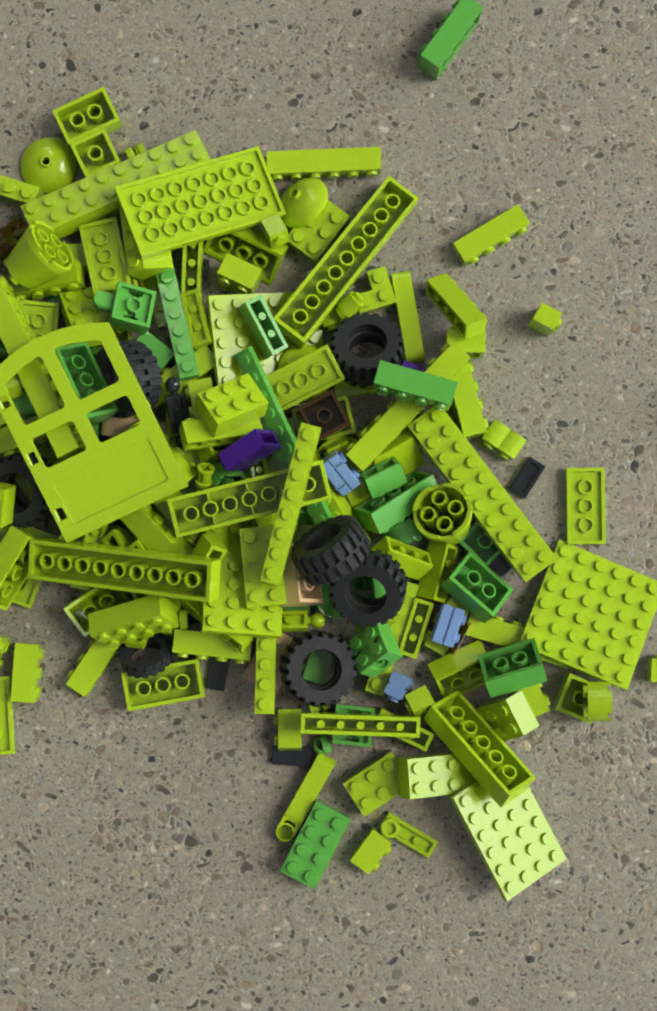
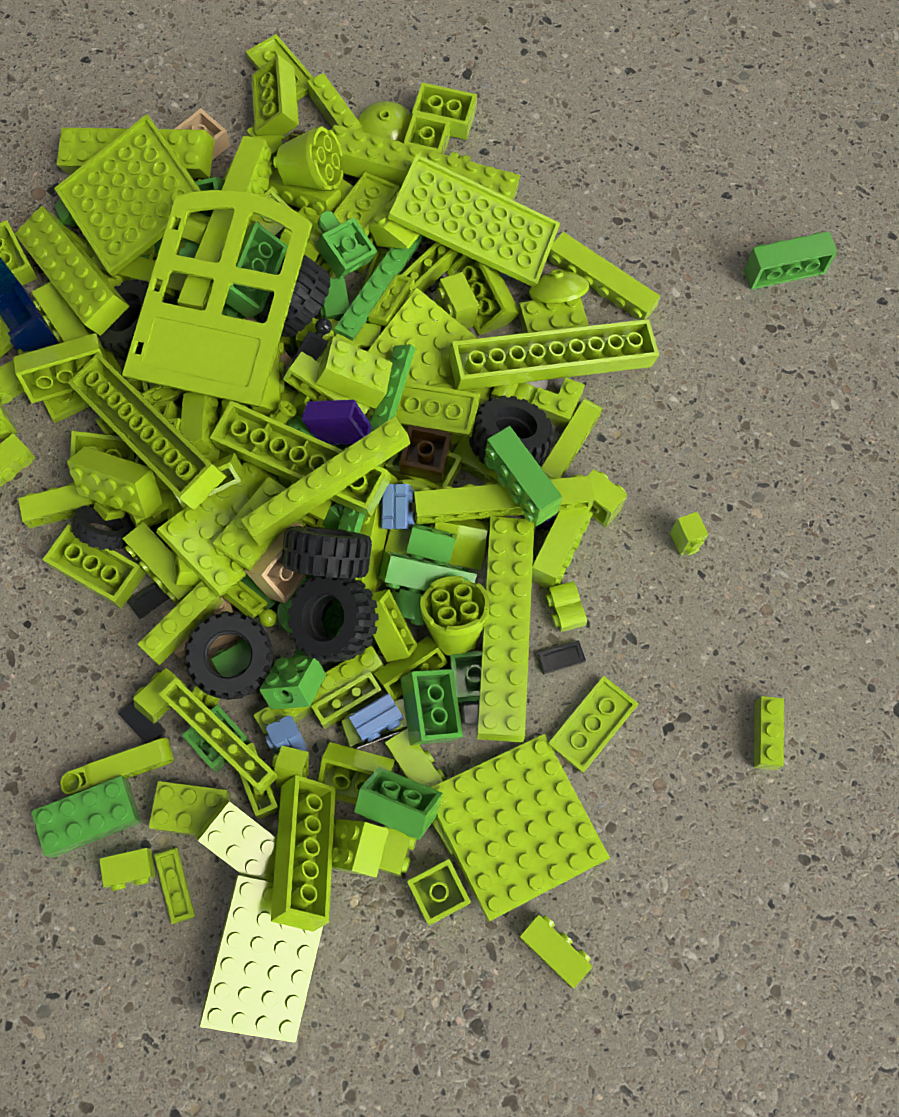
camera: 45 degrees right, 15 degrees down
(183, 619) = (157, 520): lime tile -> none
(263, 327) = (438, 343): bright green brick -> none
(274, 231) = (516, 288): lime brick -> none
(325, 743) = (176, 739): bright green tile -> none
(350, 305) = (528, 388): lime brick -> none
(389, 828) = (163, 862): lime tile -> none
(456, 306) = (618, 459): lime brick -> none
(490, 235) = (697, 434): lime brick -> none
(597, 701) = (450, 903): lime brick -> none

